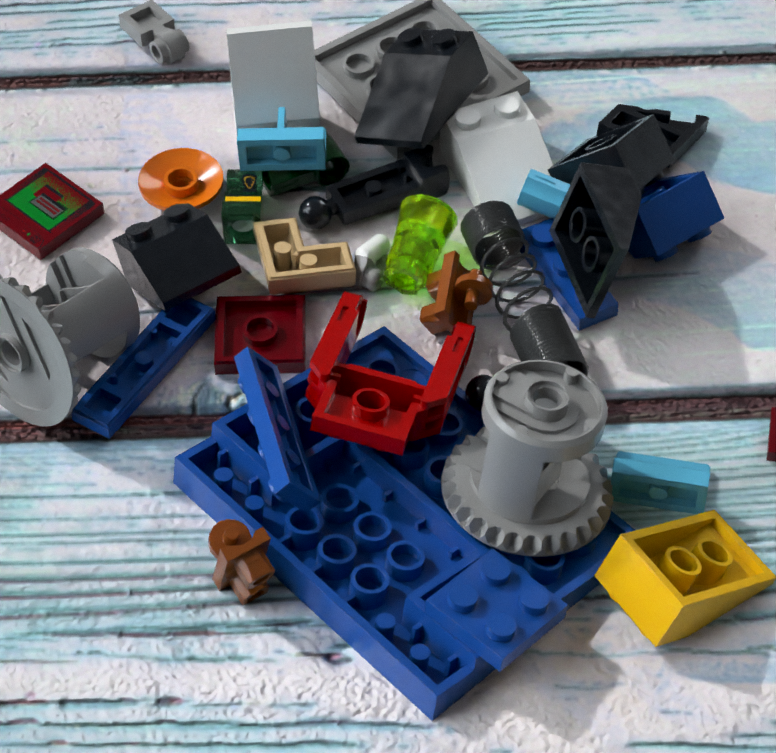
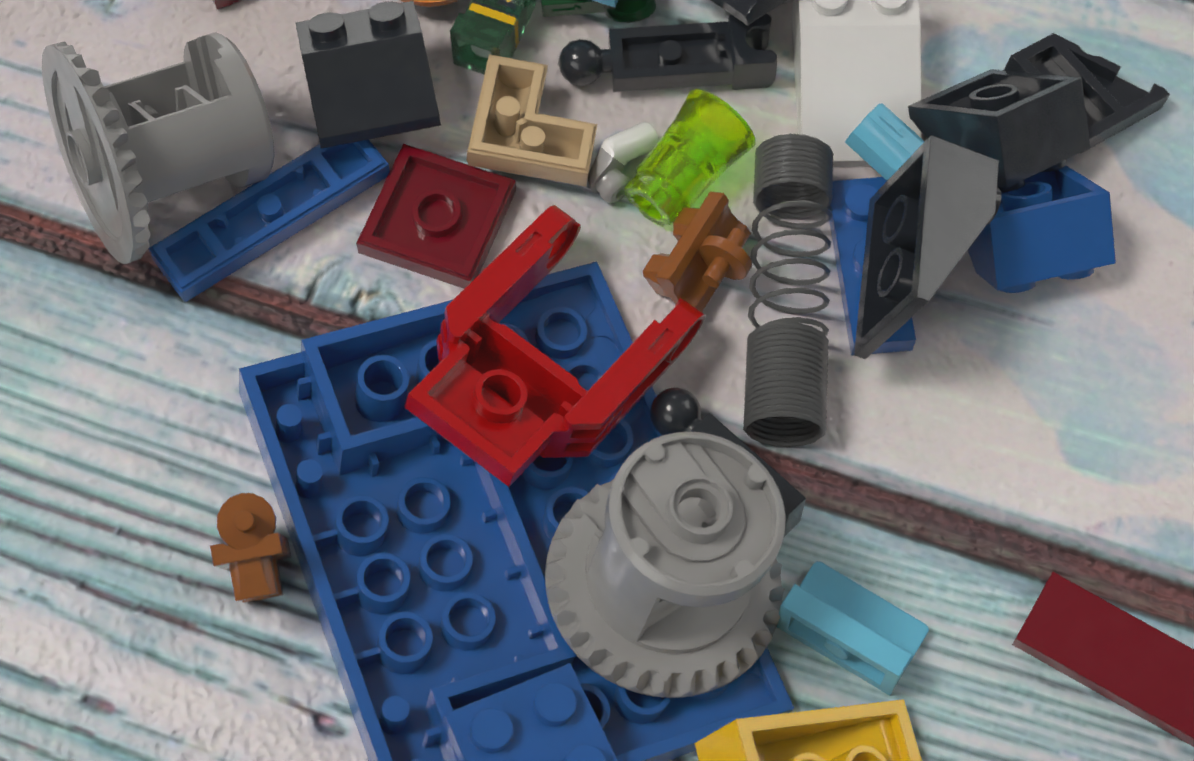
camera: 20 degrees right, 15 degrees up
(276, 431) = (368, 387): blue plate -> none

